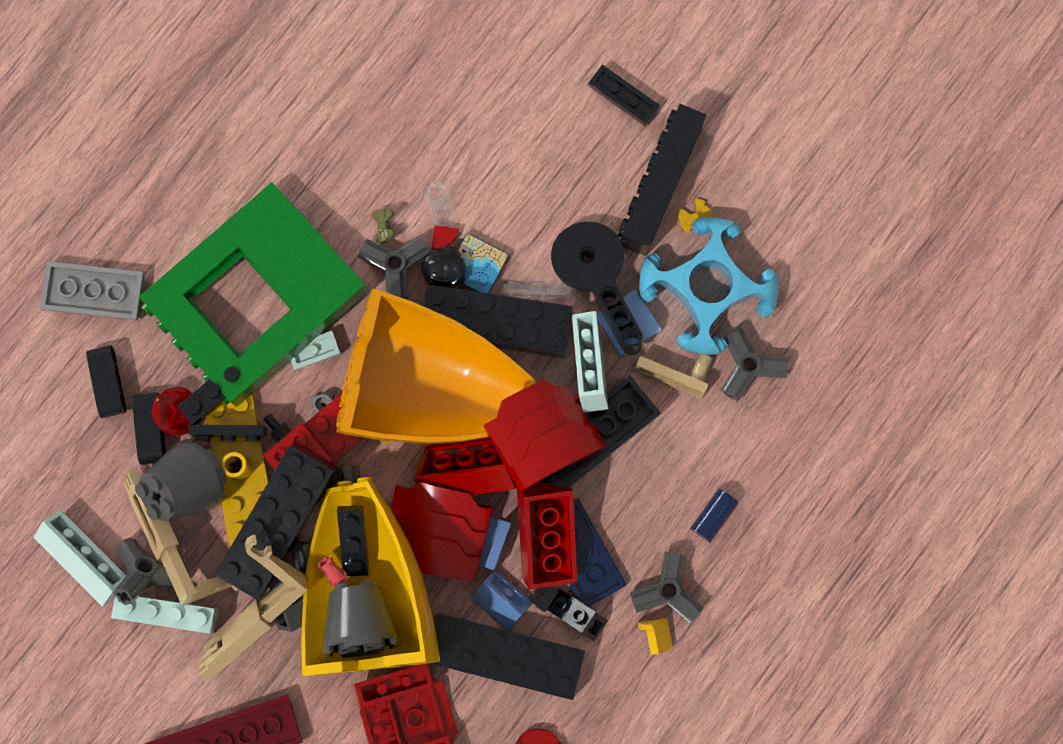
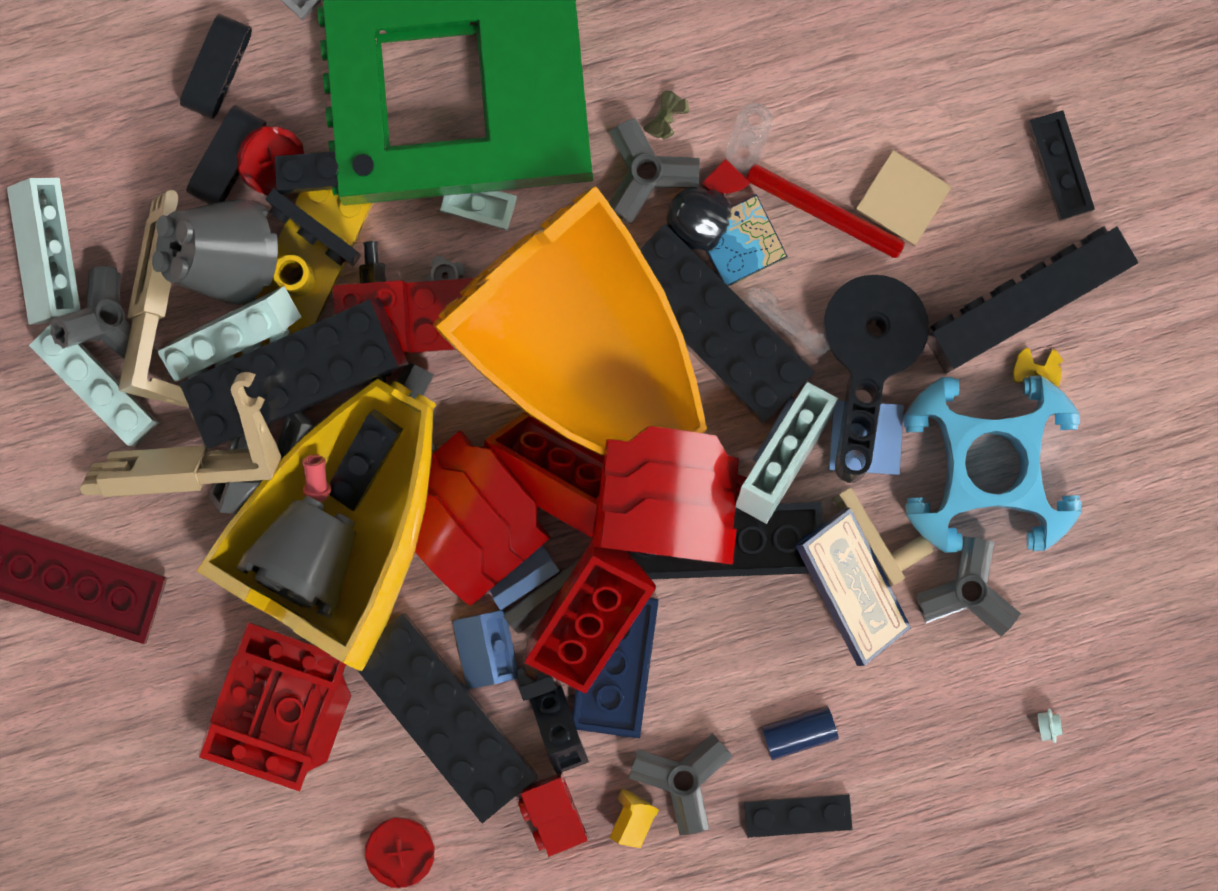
camera: 40 degrees right, 5 degrees up
(224, 525) = (230, 334): none -> light aqua brick
(511, 553) = (537, 603): none -> dark grey tile
(512, 214) = (825, 211): none -> red axle
(550, 176) = (903, 198): none -> tan tile
(573, 354) = (784, 412): none -> sand blue piece
(611, 665) = (554, 814): none -> red brick
(683, 409) = (853, 586): none -> tile
(748, 563) = (798, 815): none -> black plate
(849, 407) = (1049, 726): none -> light aqua plate

